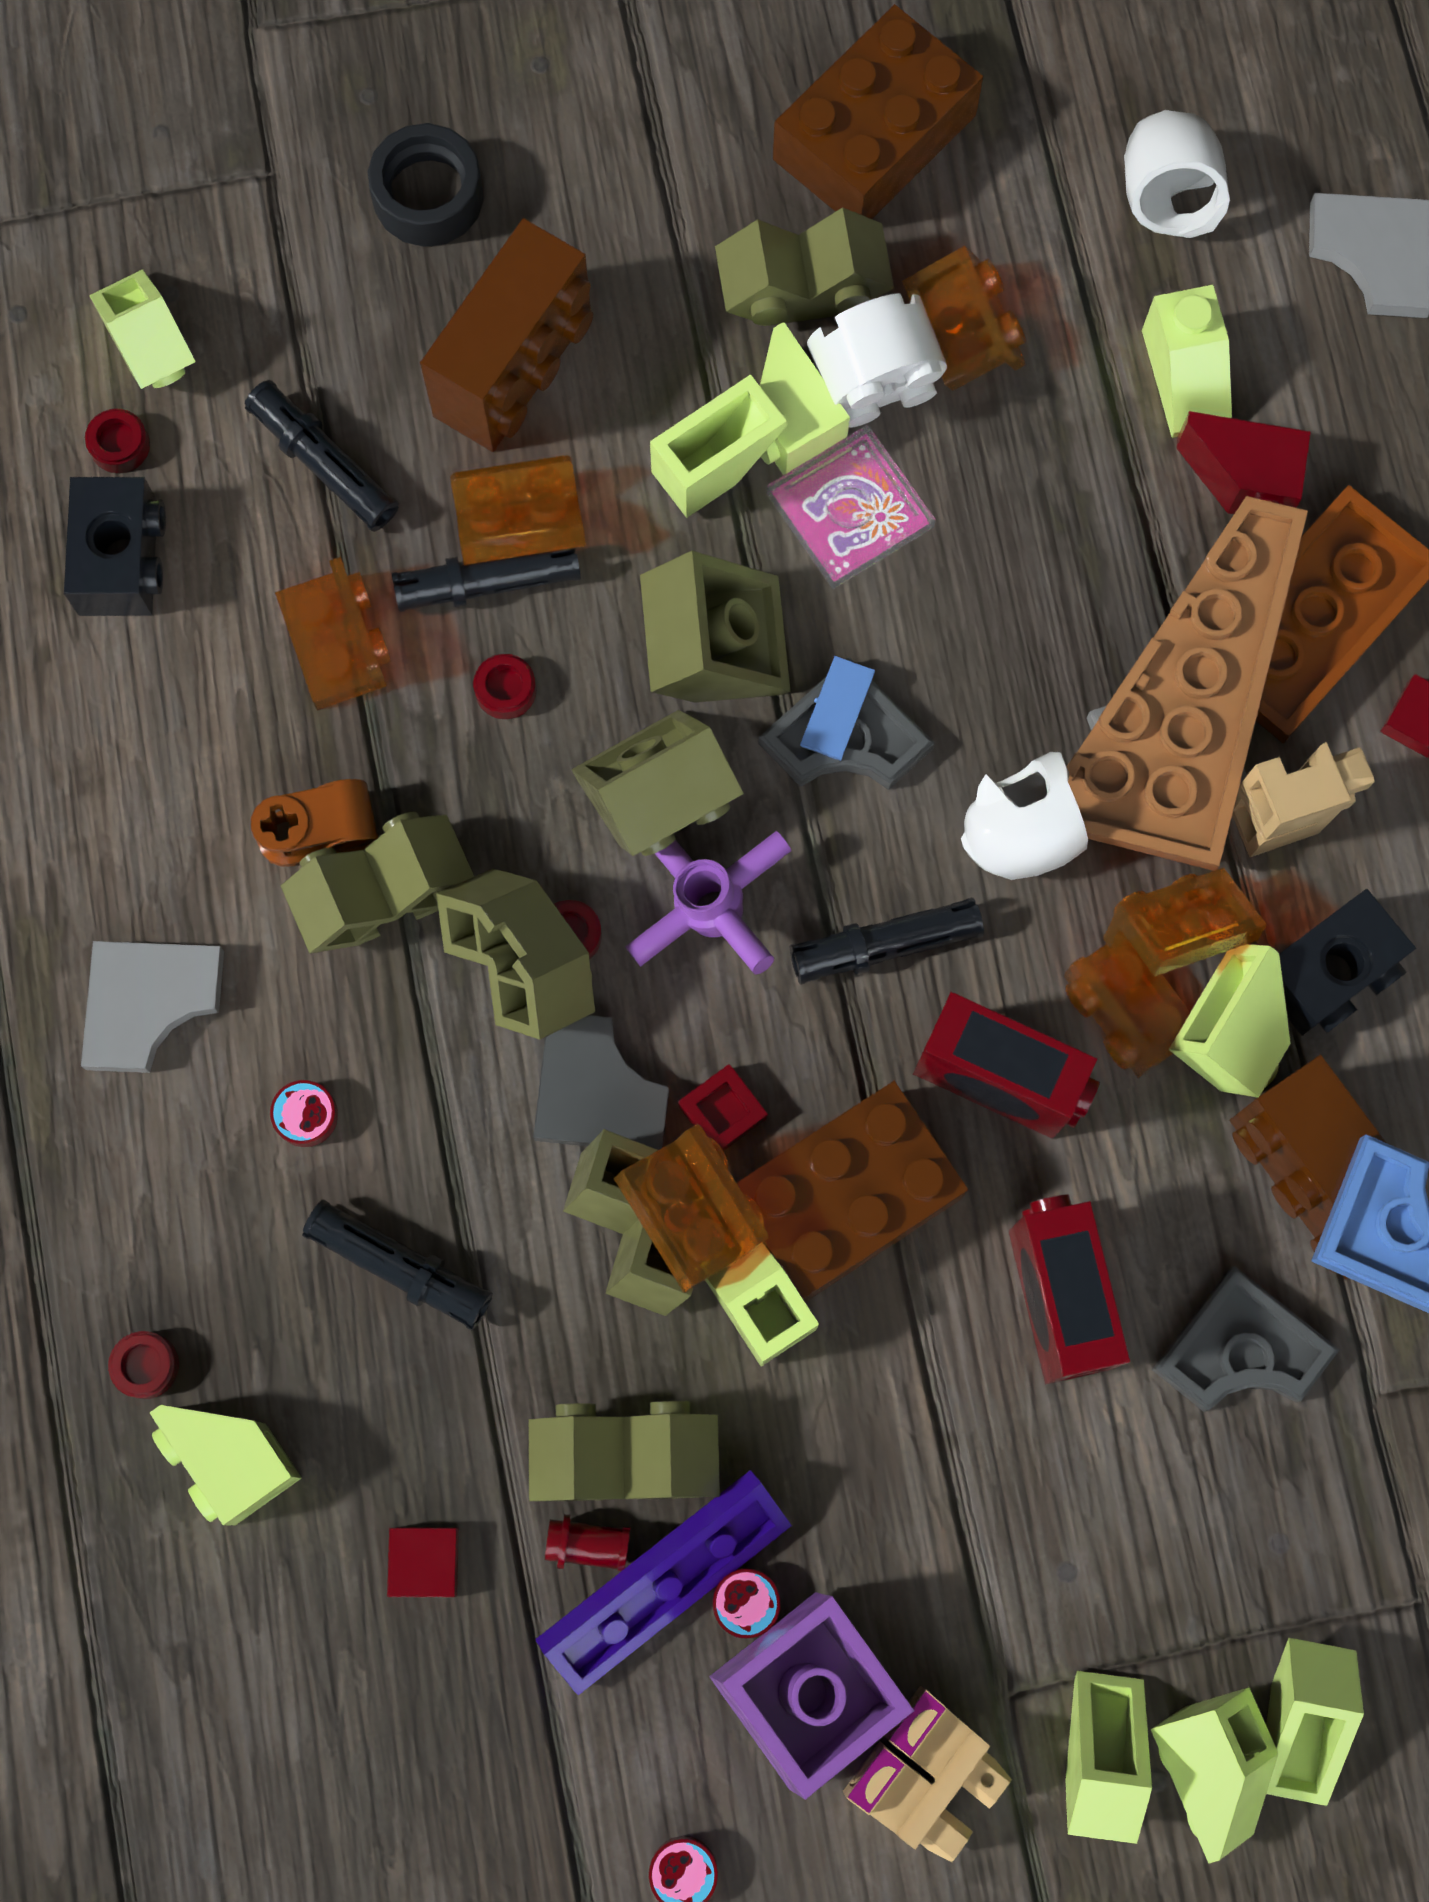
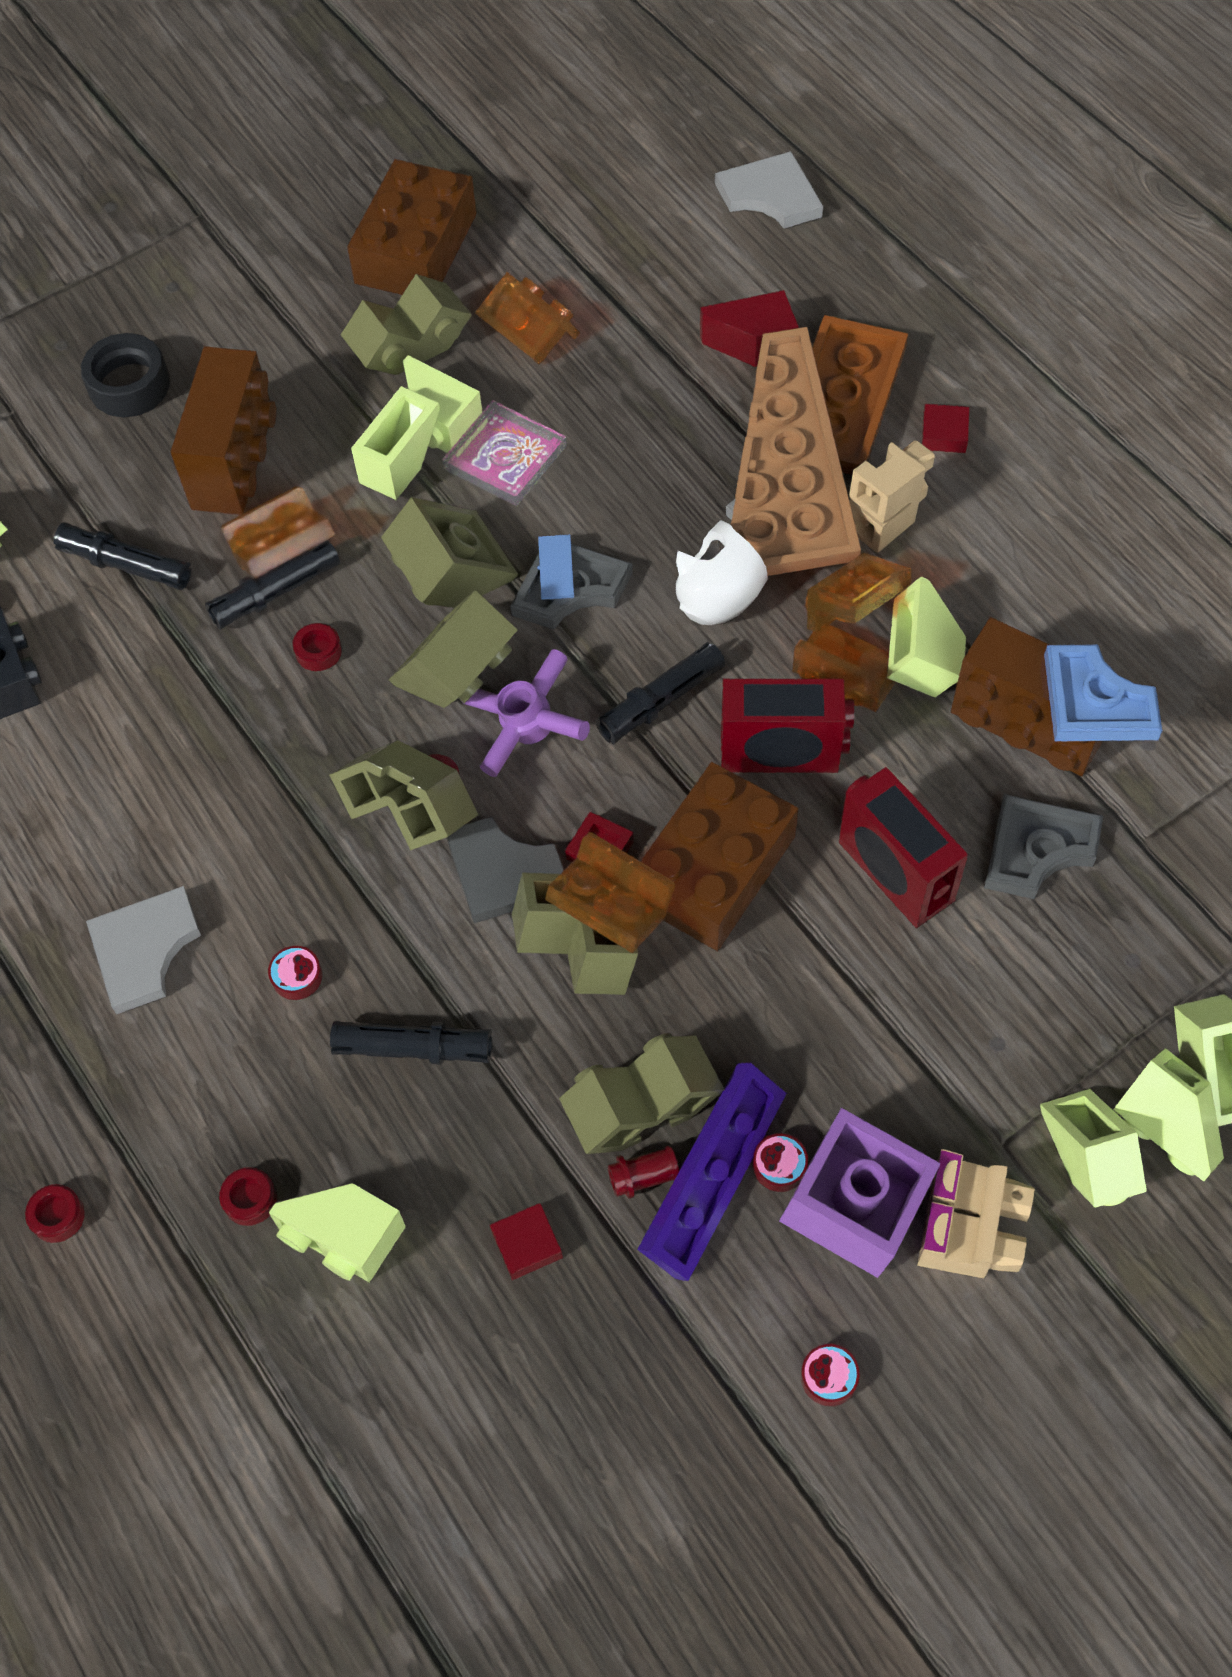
camera: 20 degrees left, 15 degrees down
(319, 818) = (222, 776): dark orange piece -> none
(331, 636) = (181, 660): clear orange bracket -> none
(349, 894) = (267, 810): olive brick -> none
(763, 1304) = (692, 949): yellowish green slope -> none
(879, 357) = (482, 350): white brick -> none
(1169, 156) = (616, 182): white piece -> none
(1189, 354) = (680, 281): yellowish green slope -> none
(1361, 936) = (979, 563): black brick -> none

